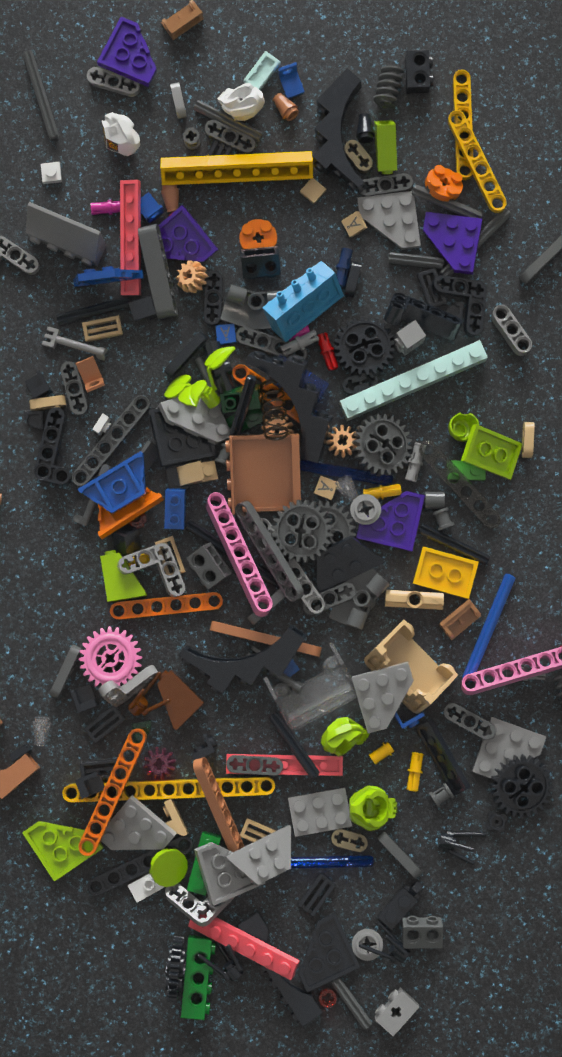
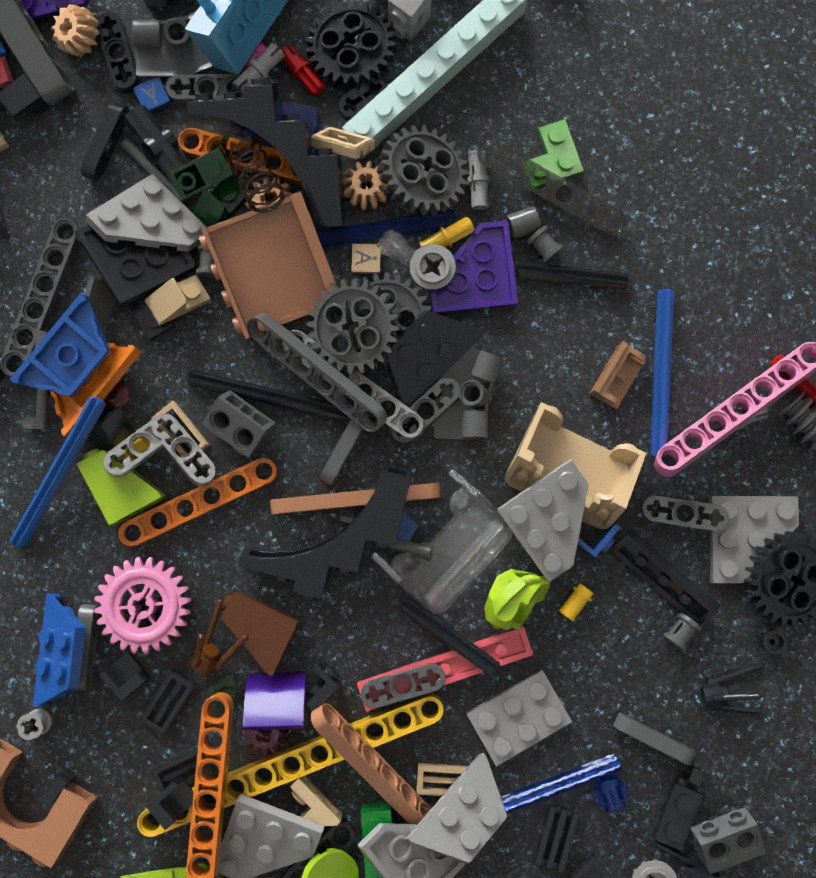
camera: 25 degrees left, 0 degrees up
(24, 708) = (25, 725): none -> light grey bush
(41, 728) = (78, 743): clear cone -> none
(49, 669) = (59, 652): none -> blue wing
(86, 557) = (57, 471): none -> blue axle
(102, 424) = (18, 278): white plate -> none
(118, 695) = (171, 655): light grey beam -> none
(172, 747) = (275, 701): none -> slope
(175, 508) = (162, 359): blue brick -> none
(190, 394) = (151, 181): lime plant -> none
(238, 563) = (277, 404): bright pink beam -> none
(243, 405) = (205, 173): black axle -> none
(336, 412) = (343, 142): none -> tan tile
(347, 844) = (575, 750): dark tan beam -> none
(360, 878) = (611, 793): none -> clear blue gear
(371, 808) = (591, 687): lime helmet -> none
(414, 771) = (632, 612): yellow axle -> none
(427, 600) = (562, 366): tan piece -> none
(445, 572) = (575, 317): yellow plate -> none
(461, 425) = (528, 107): lime hair -> none
(491, 451) = (579, 126): lime plate -> none
(527, 440) = (622, 96): tan beam -> none

